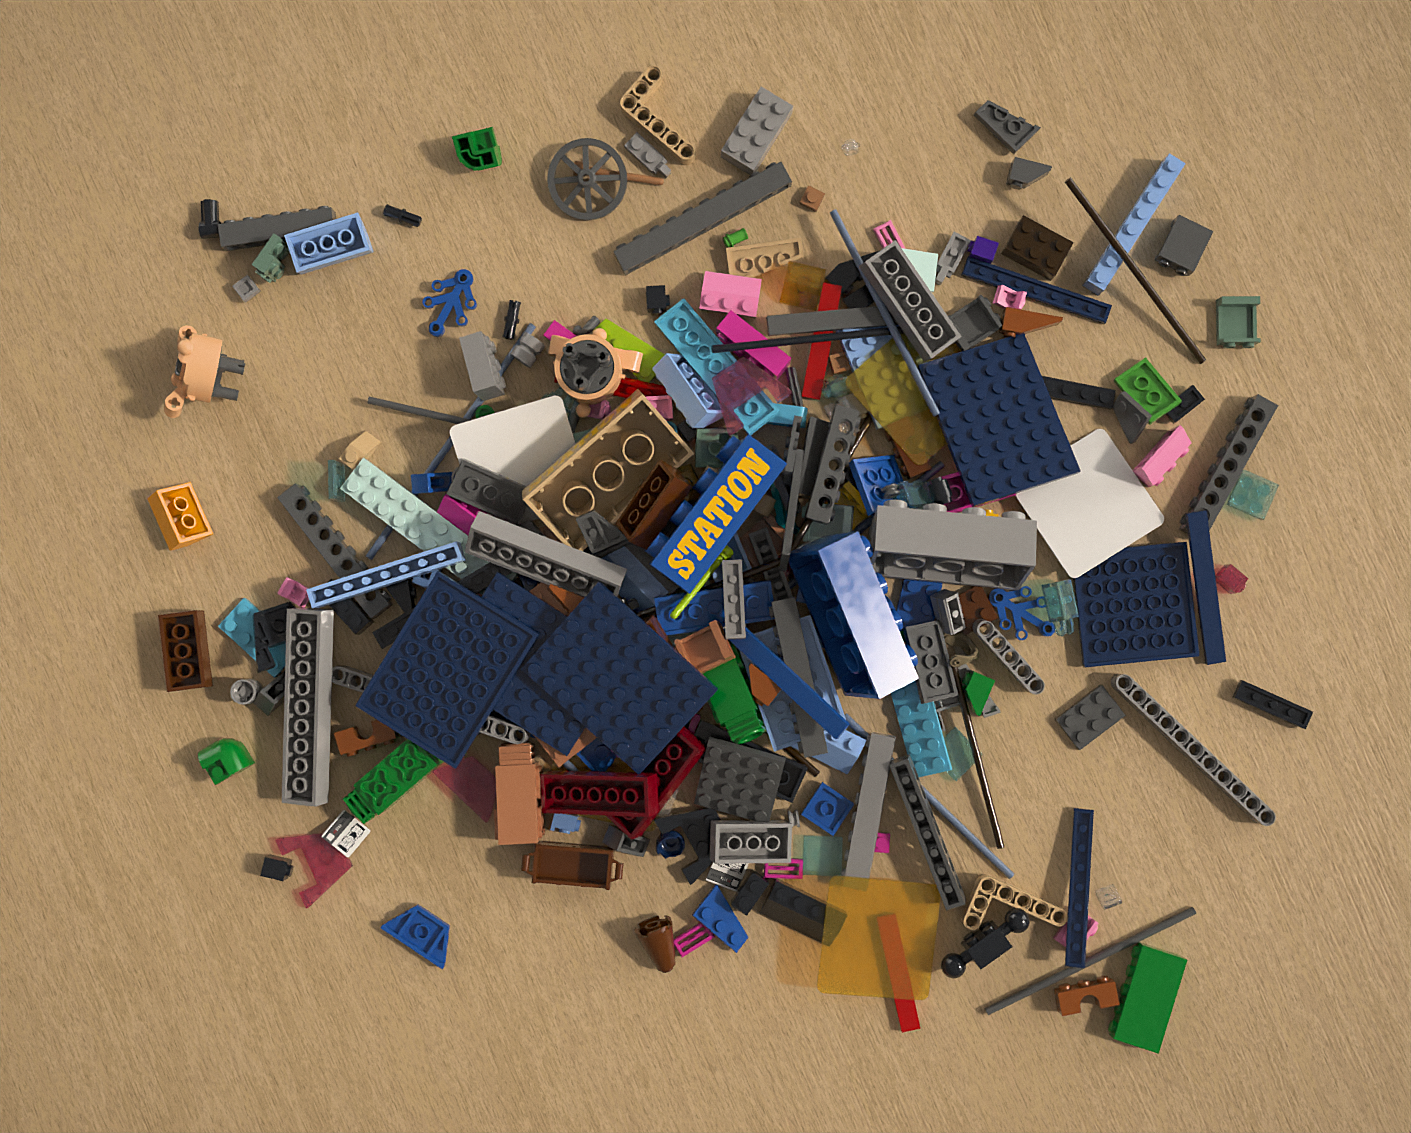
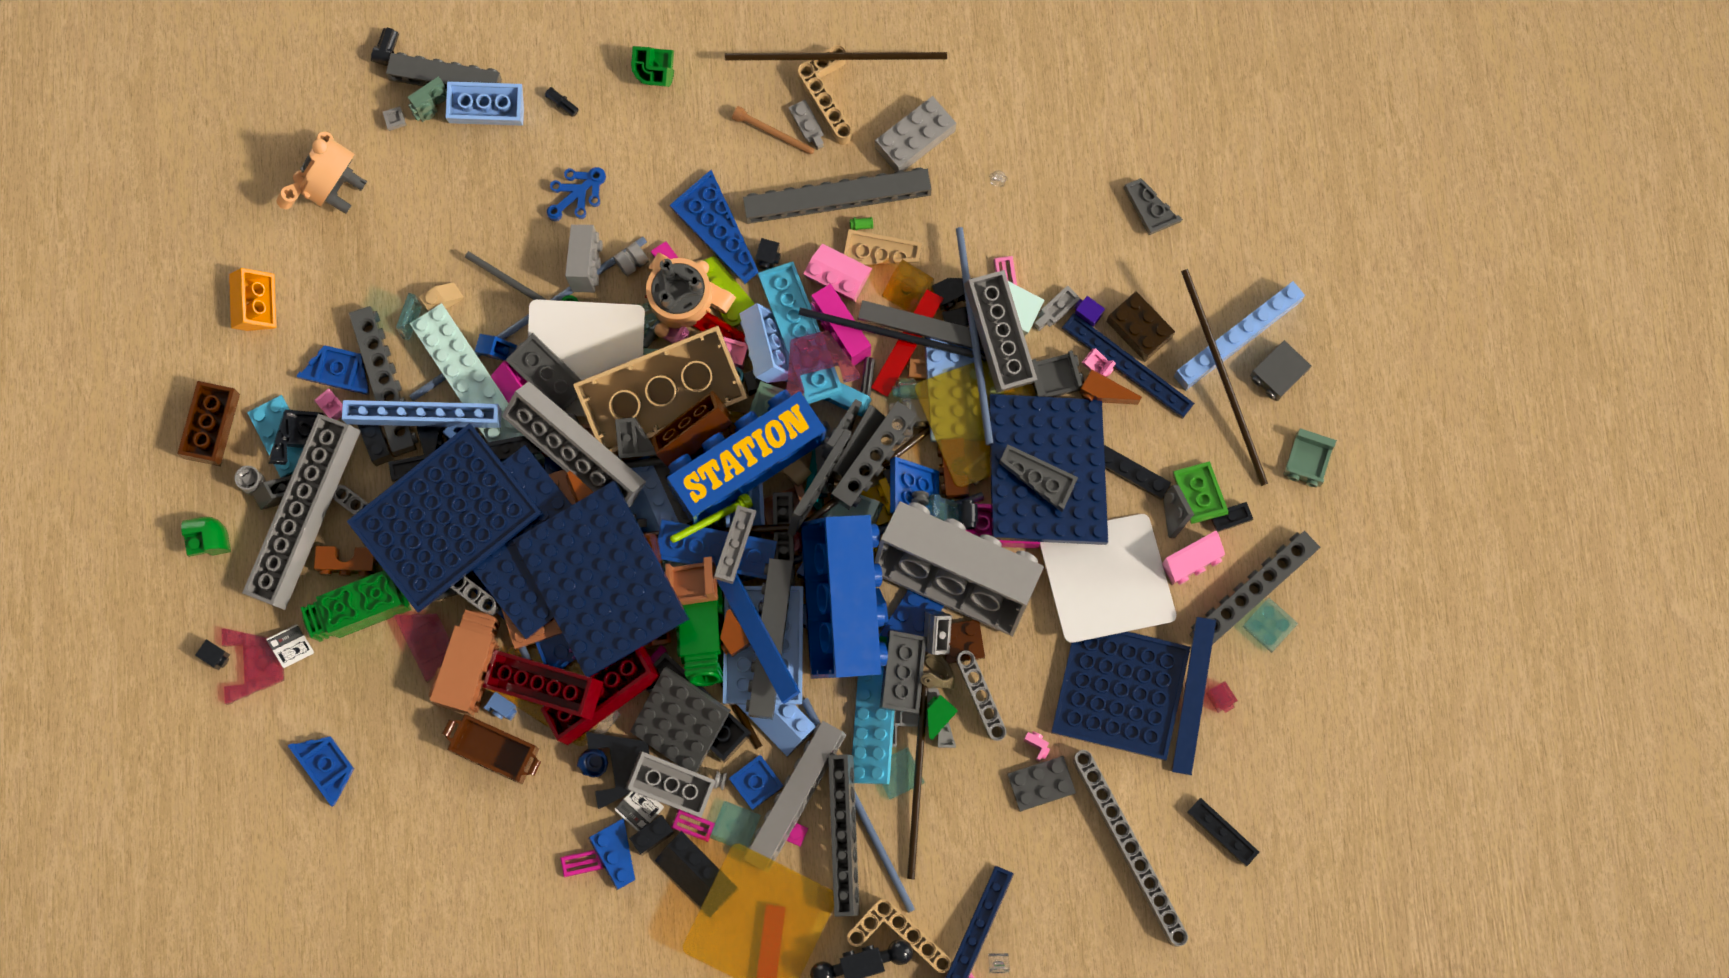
camera: 15 degrees right, 10 degrees down
(287, 554) = (337, 369): none -> blue wing
(511, 320) = (626, 227): black pin -> none
(588, 327) = (701, 255): dark grey arm -> none
(589, 283) = (710, 218): none -> blue wing
(621, 842) = (548, 743): dark grey slope -> none
(622, 177) = (746, 129): dark grey wheel -> none
(653, 78) = (837, 56): none -> dark brown piece
(658, 942) = (546, 853): reddish brown cone -> none
(812, 198) = (946, 212): medium nougat plate -> none
(1000, 431) = (1040, 476): none -> dark grey wing
(1018, 611) = (1008, 657): blue plant -> none
(1025, 173) = (1154, 256): dark grey slope -> none
(1060, 606) = (1048, 664): clear light blue hinge -> none
(1072, 679) = (1036, 740): none -> bright pink bracket

